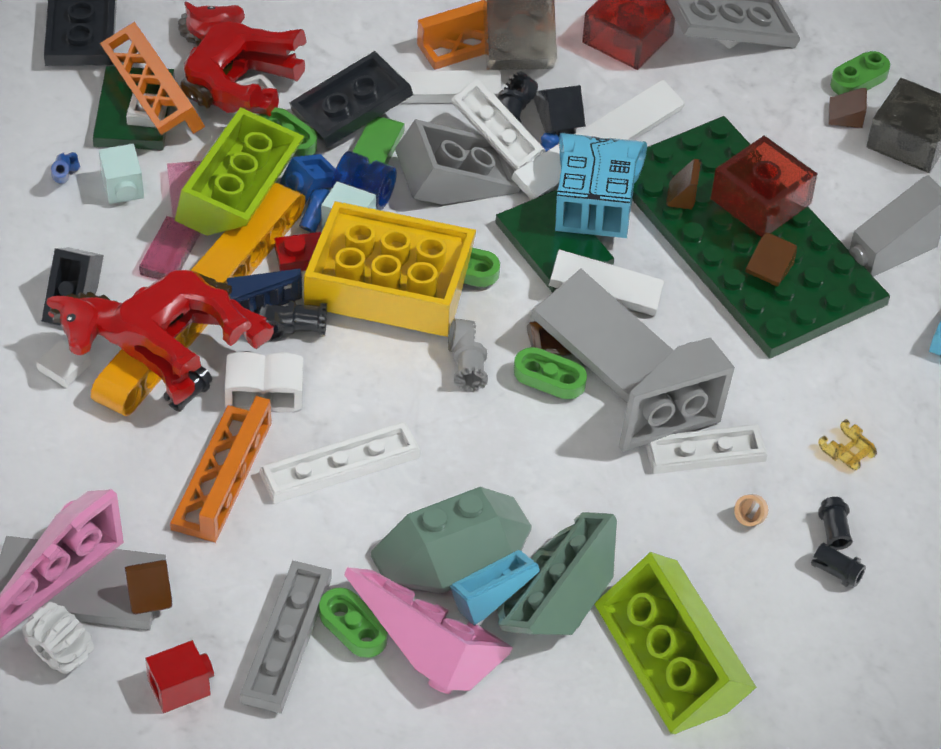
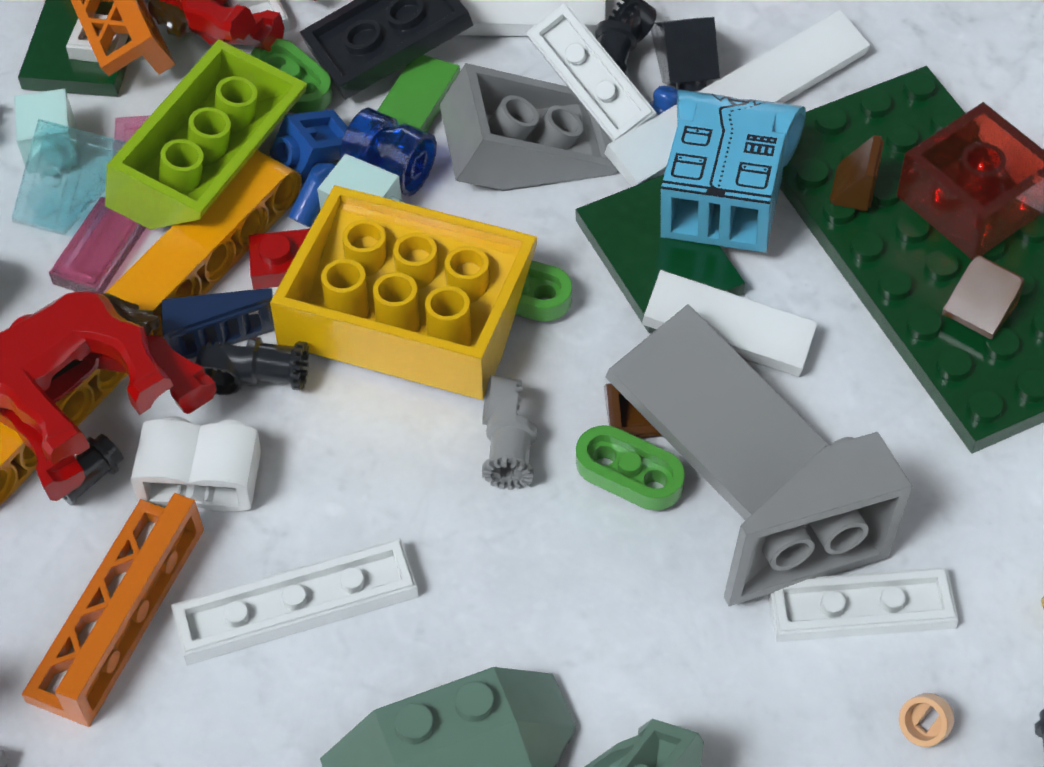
camera: 10 degrees right, 5 degrees up
(142, 201) = (62, 176): none -> clear light blue wing

